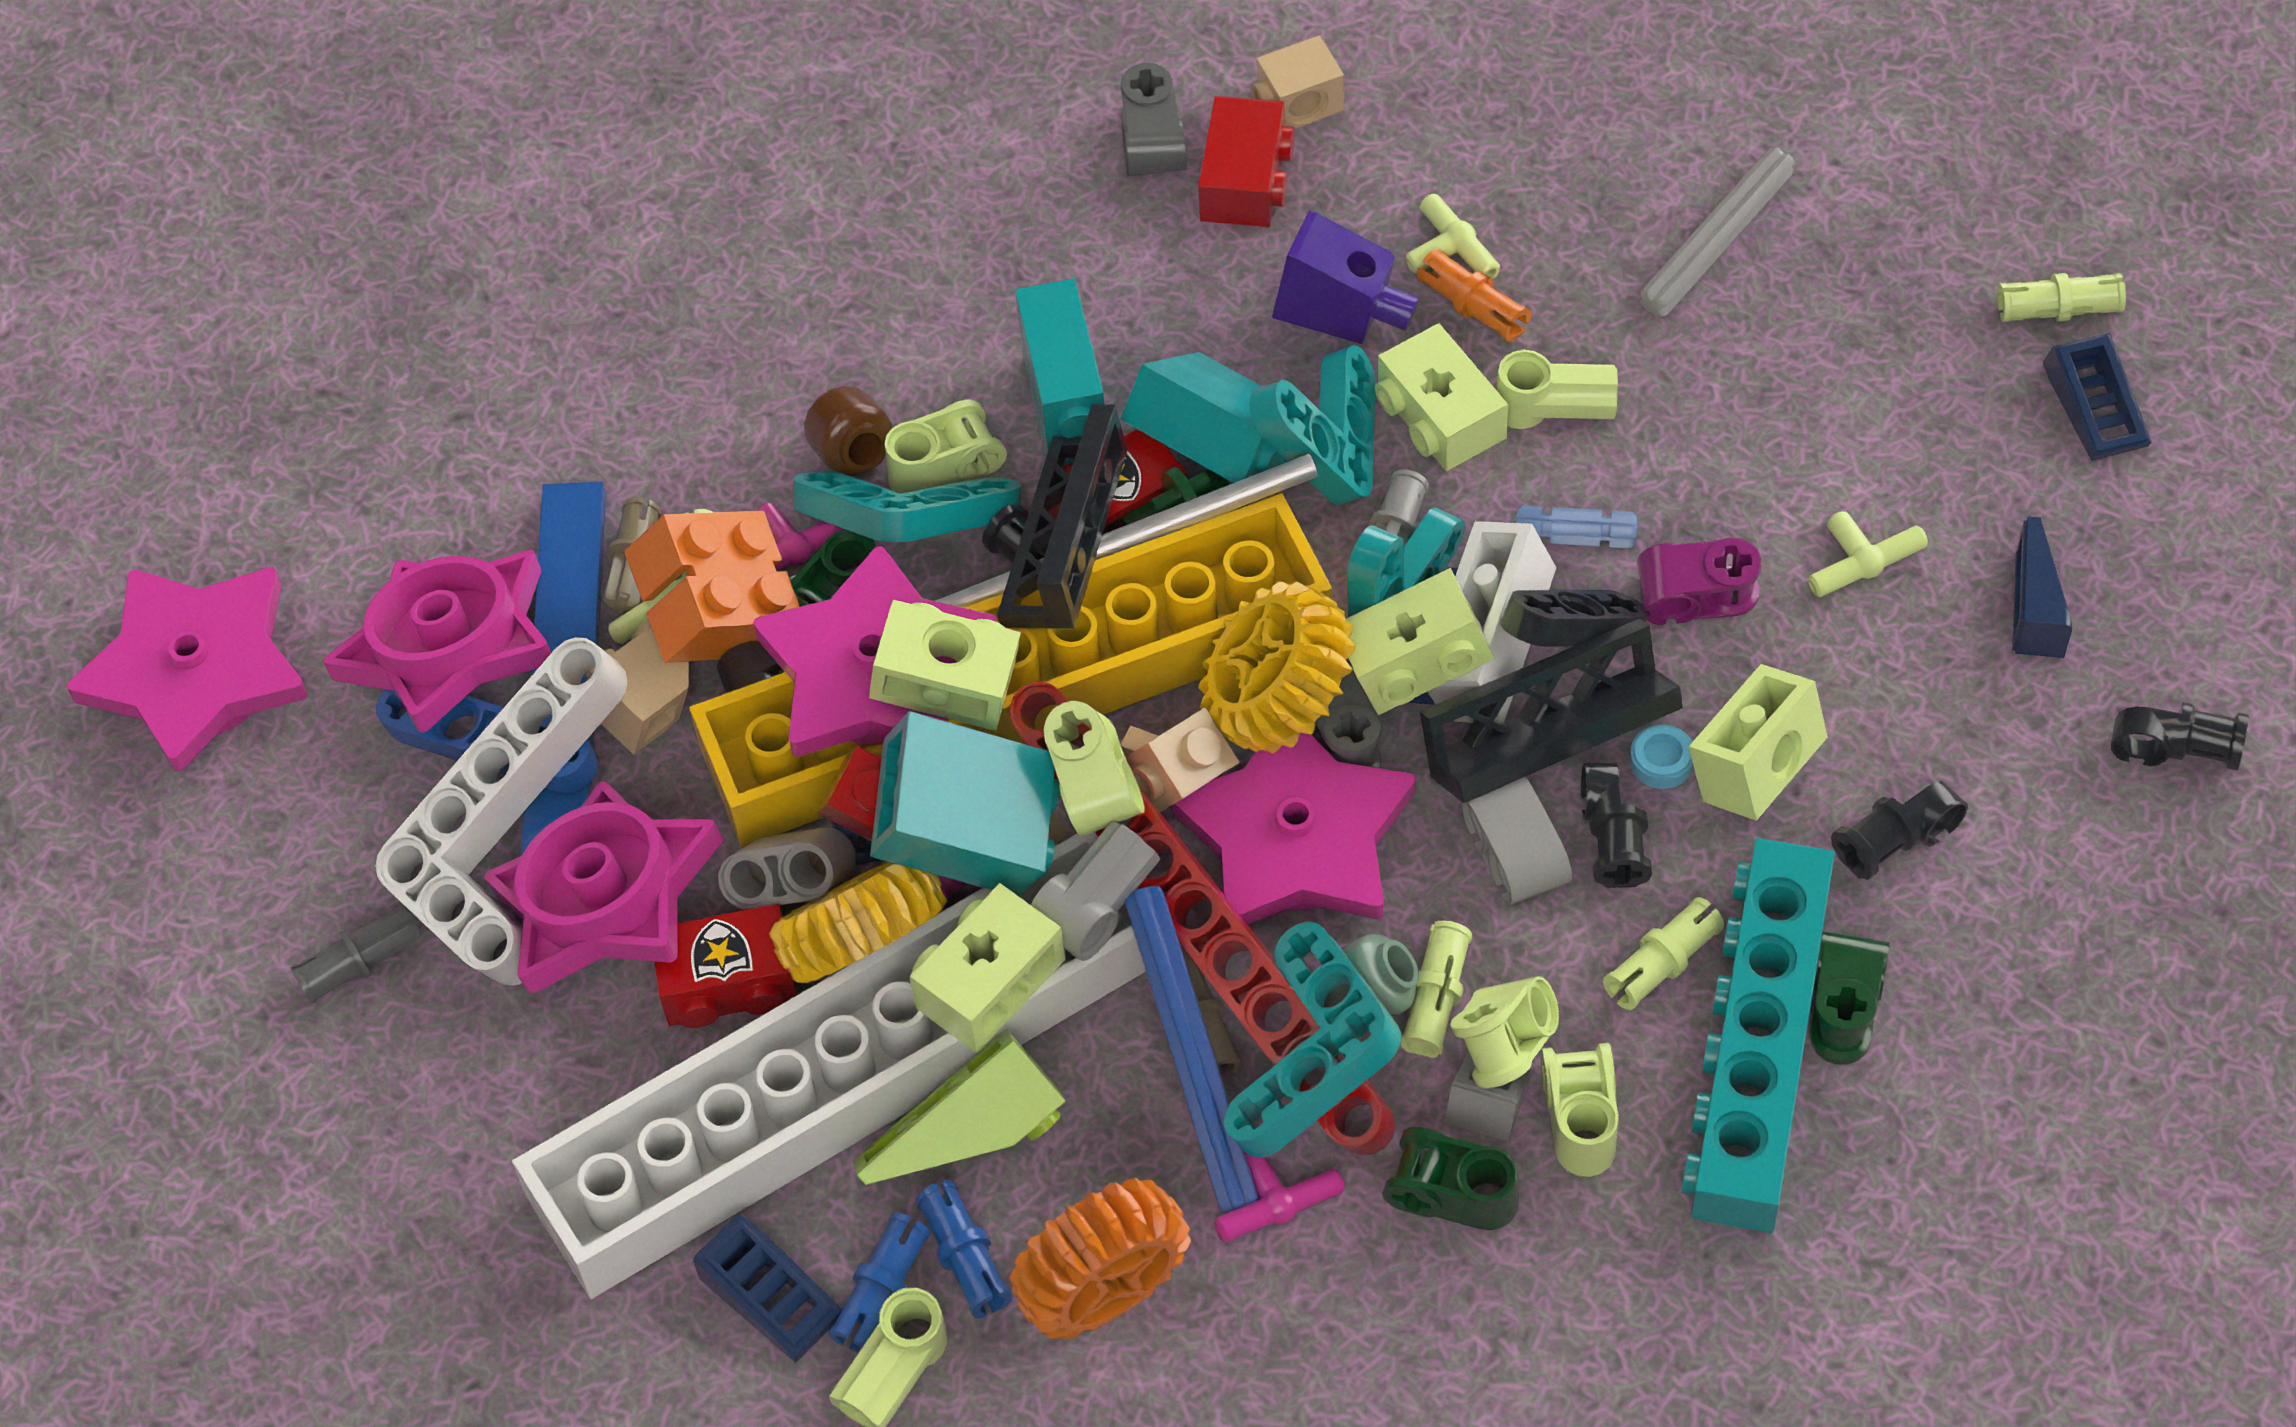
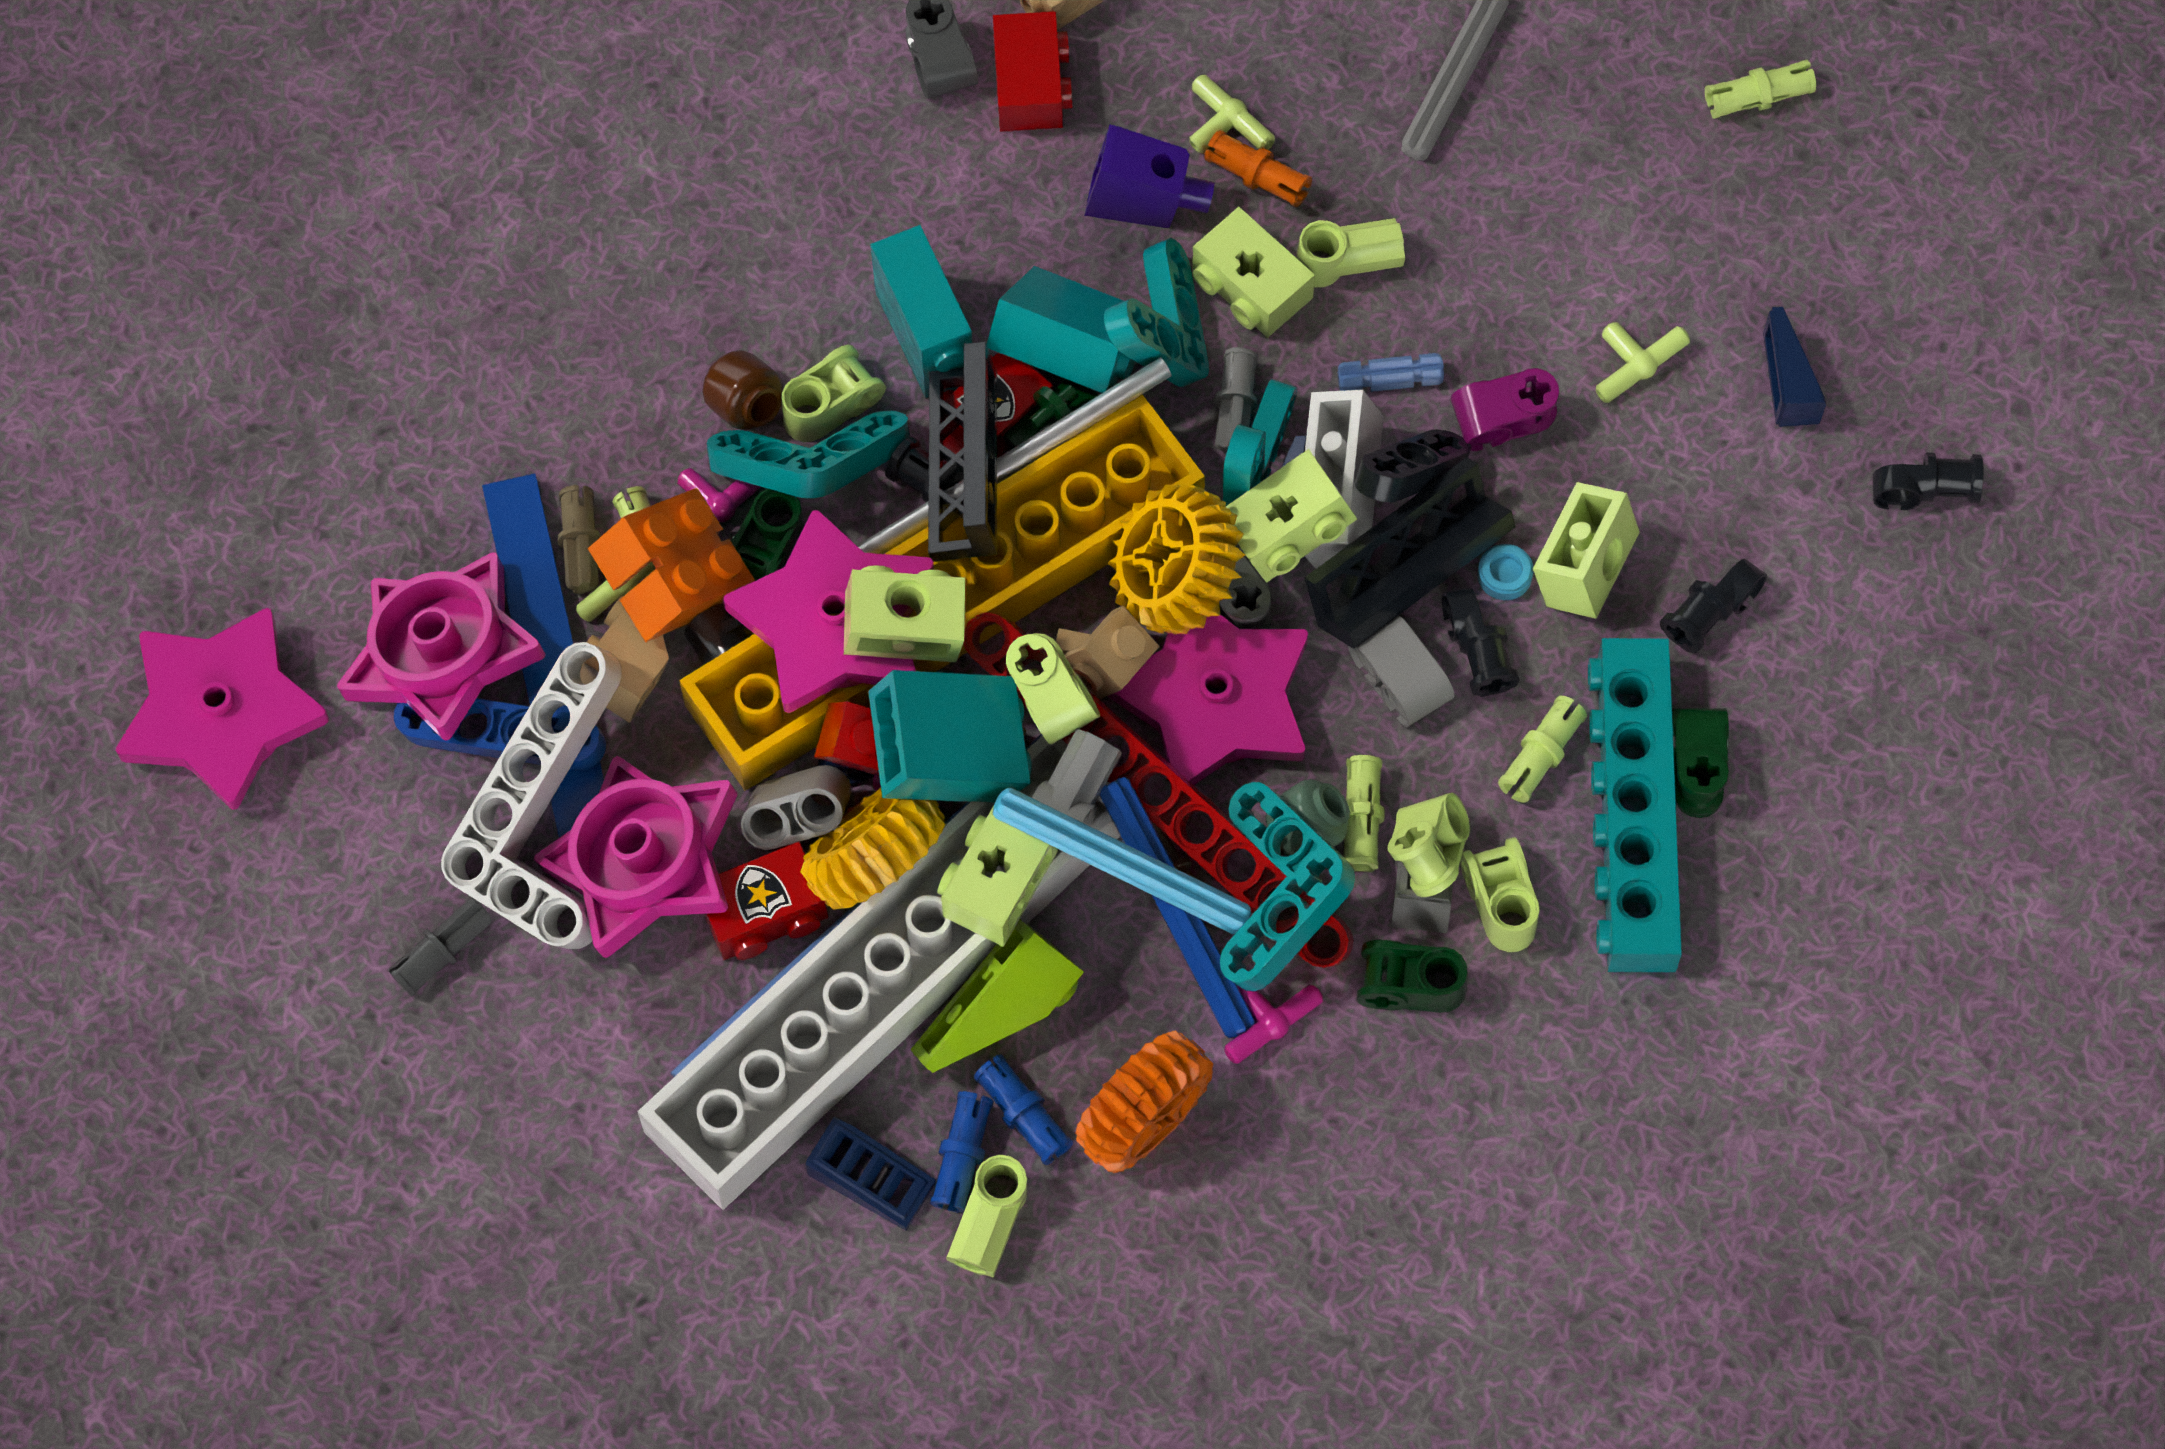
camera: 15 degrees left, 10 degrees up
(1129, 974) = (1120, 860): none -> medium azure axle
(2097, 352) = (1773, 159): dark blue slope -> none

